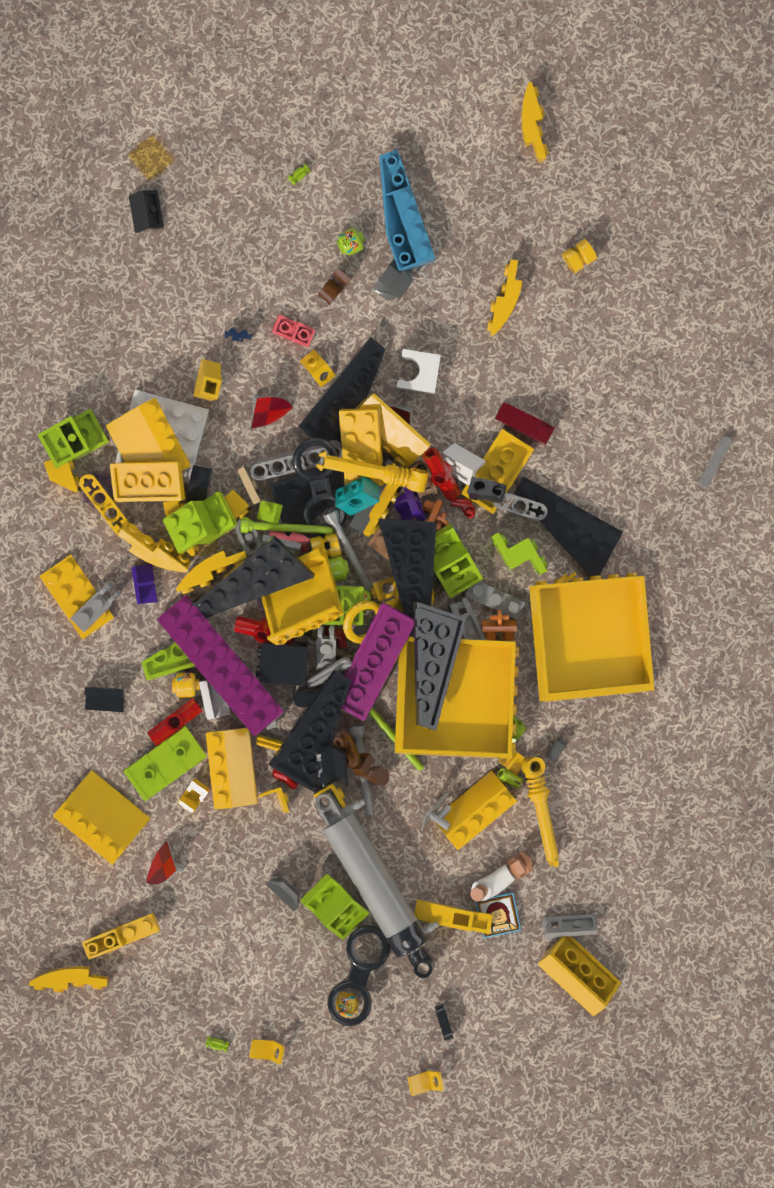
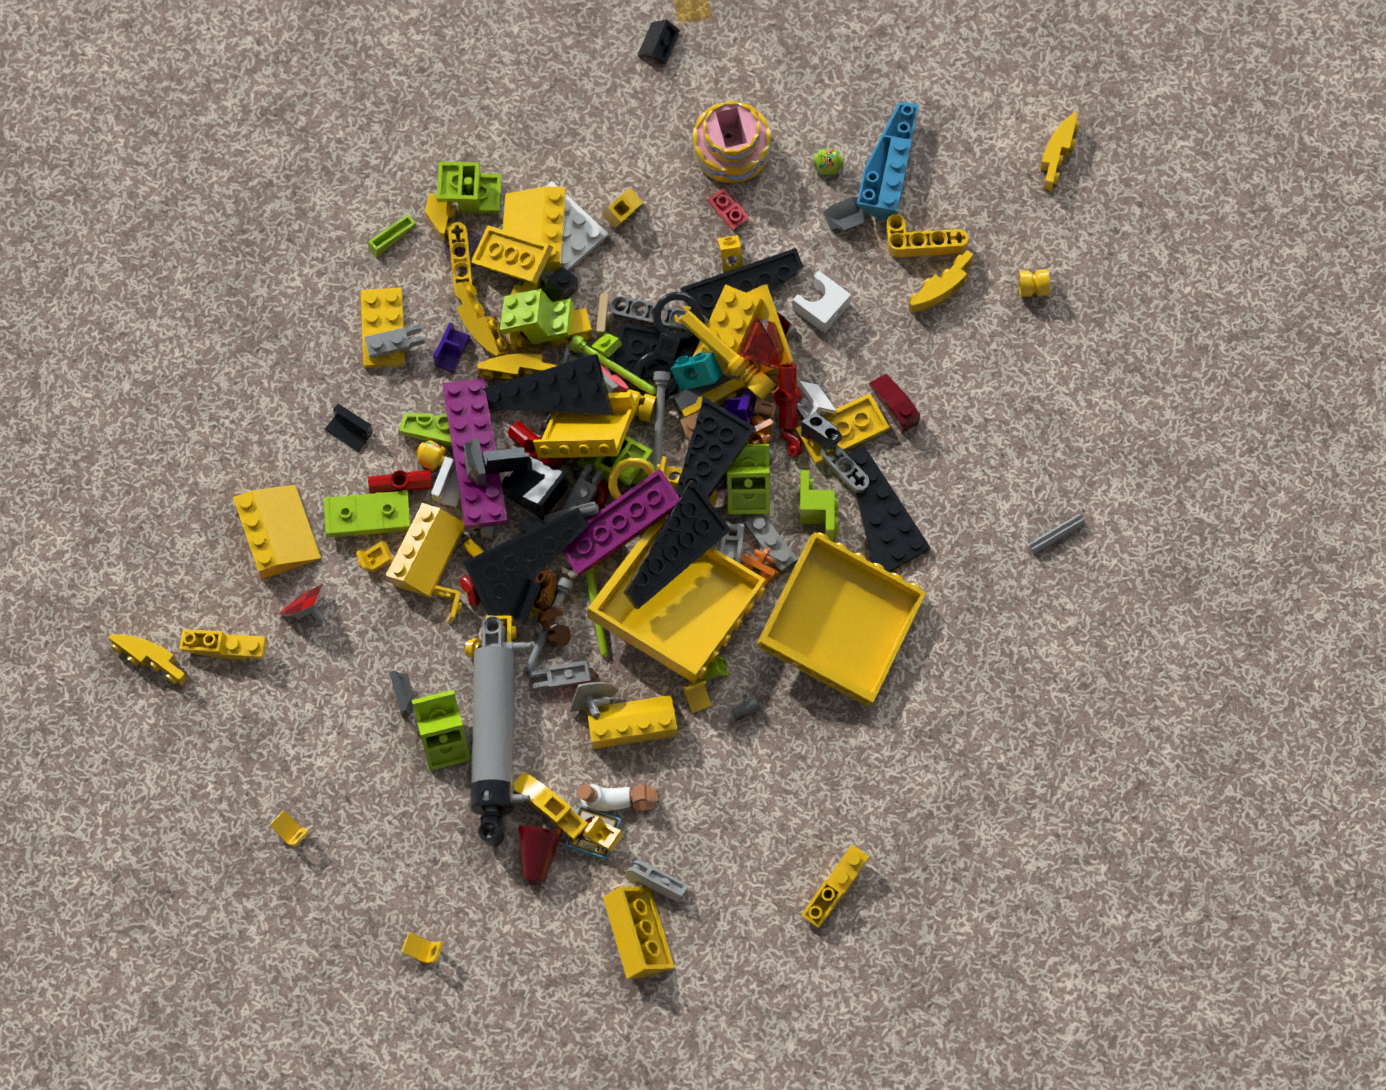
camera: 30 degrees right, 20 degrees down
(33, 513) = (391, 235): none -> lime piece
(217, 1044) = (246, 798): lime piece -> none
(229, 680) = (474, 462): none -> dark grey slope
(237, 337) = (673, 185): dark blue piece -> none
(251, 661) = (505, 460): none -> black panel
(268, 410) = (662, 260): shield -> none
(275, 260) = (734, 158): none -> piece
(299, 174) = (816, 83): lime piece -> none
(317, 823) = (471, 646): none -> yellow plate
(334, 286) = (785, 192): reddish brown leg -> none
(339, 568) = (639, 430): lime head -> none
(347, 1004) = (392, 829): yellow head -> none
(358, 976) = (422, 807): black bar -> none
(400, 804) = (562, 675): none -> light grey hinge
(402, 448) = (763, 343): none -> clear red slope
(444, 1022) = (477, 902): black beam -> none
(466, 957) = (537, 852): none -> dark red cone
(471, 266) = (926, 238): none -> yellow beam
(506, 776) = (683, 707): lime pin -> none
(510, 916) = (603, 834): none -> yellow bracket
(539, 794) = (702, 739): yellow piece -> none
(707, 852) = (835, 886): none -> yellow slope

